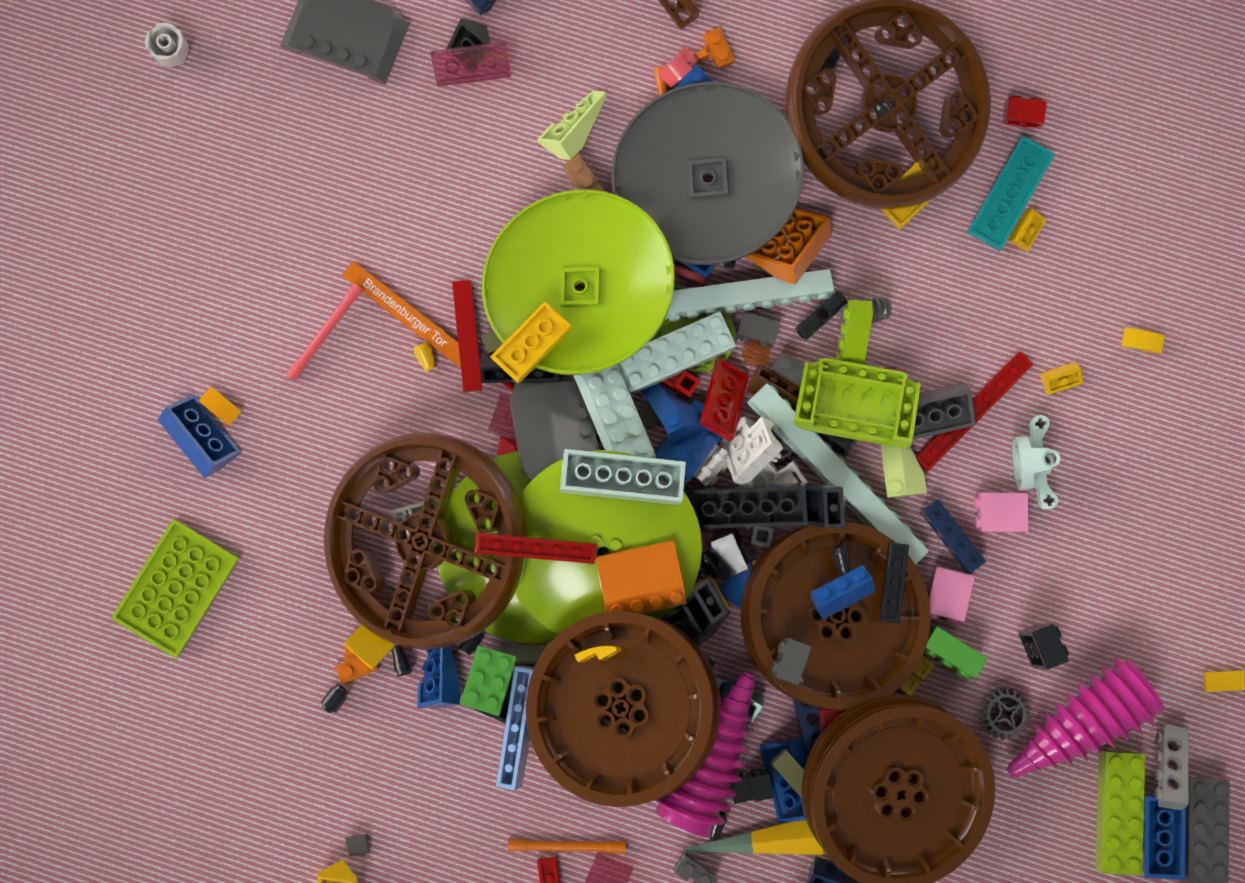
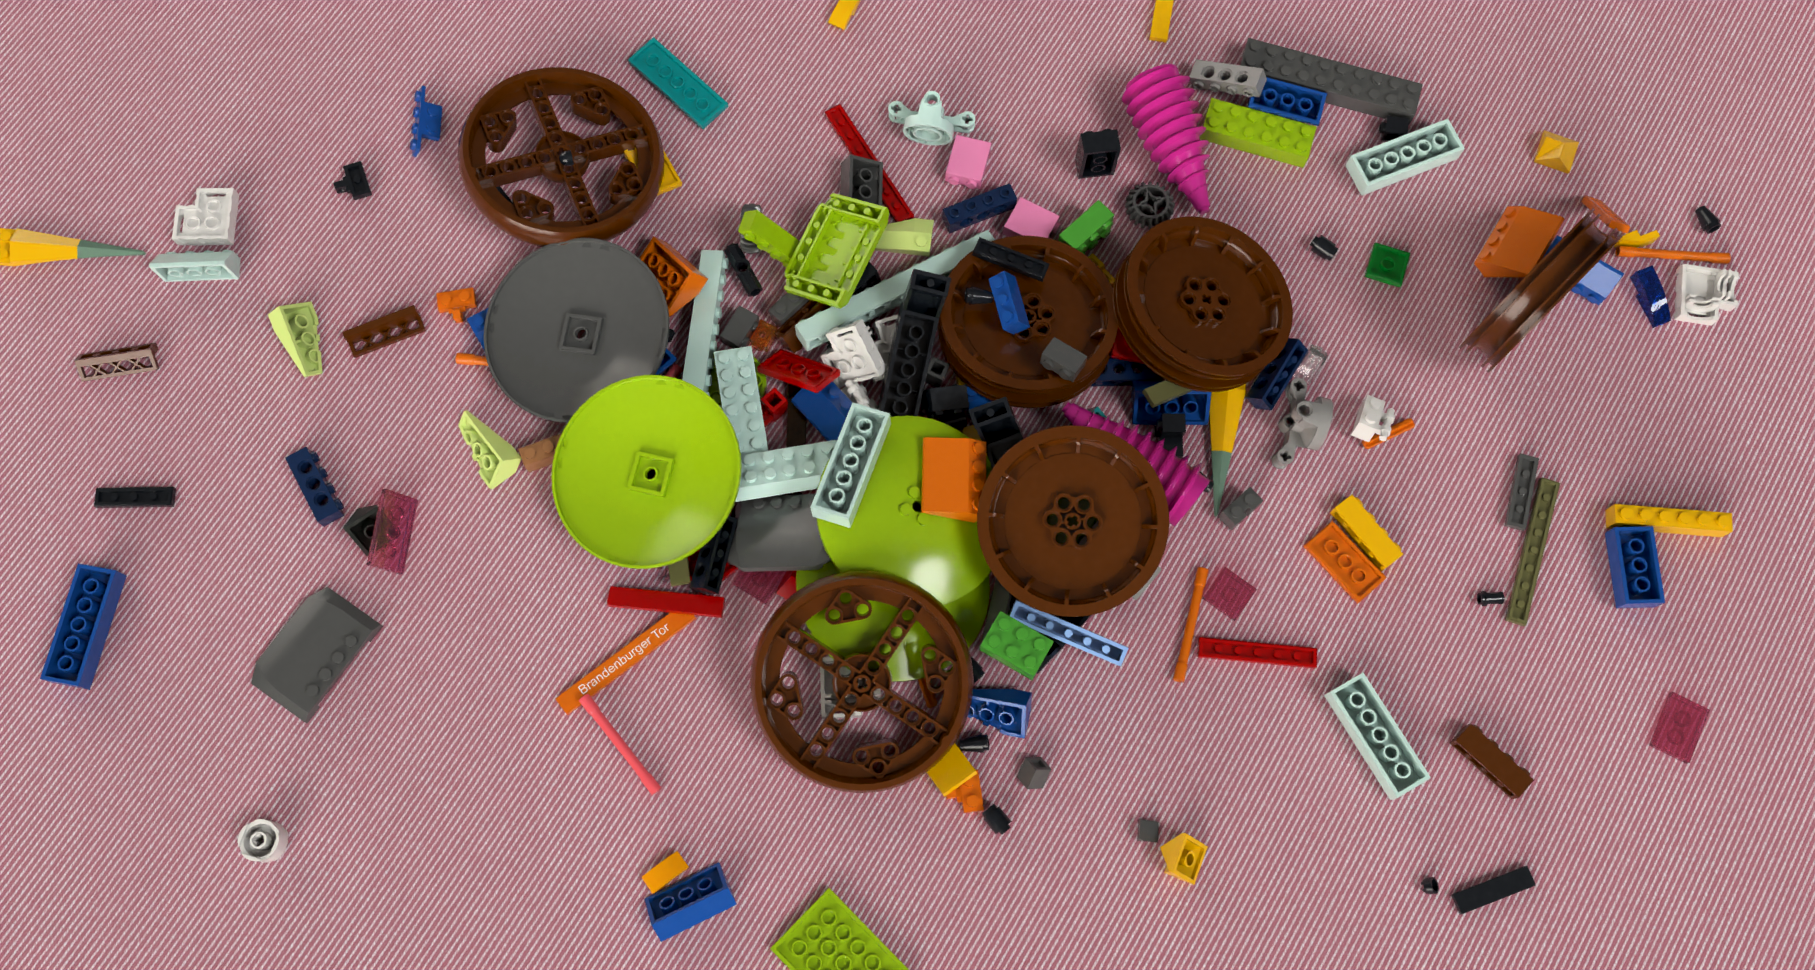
camera: 80 degrees left, 10 degrees down
(386, 724) = (1034, 772): none -> dark grey panel
(425, 356) = (674, 648): yellow cone -> none
(531, 342) = (694, 526): yellow tile -> none
(535, 548) = (899, 563): red tile -> none
(602, 653) = (1016, 520): yellow slope -> none
(673, 413) = (799, 421): blue wedge -> none
(678, 67) = (463, 339): coral brick -> none
(1024, 112) = (607, 52): red brick -> none
(1027, 229) = (715, 78): yellow slope -> none
(1061, 378) = (859, 84): yellow slope -> none

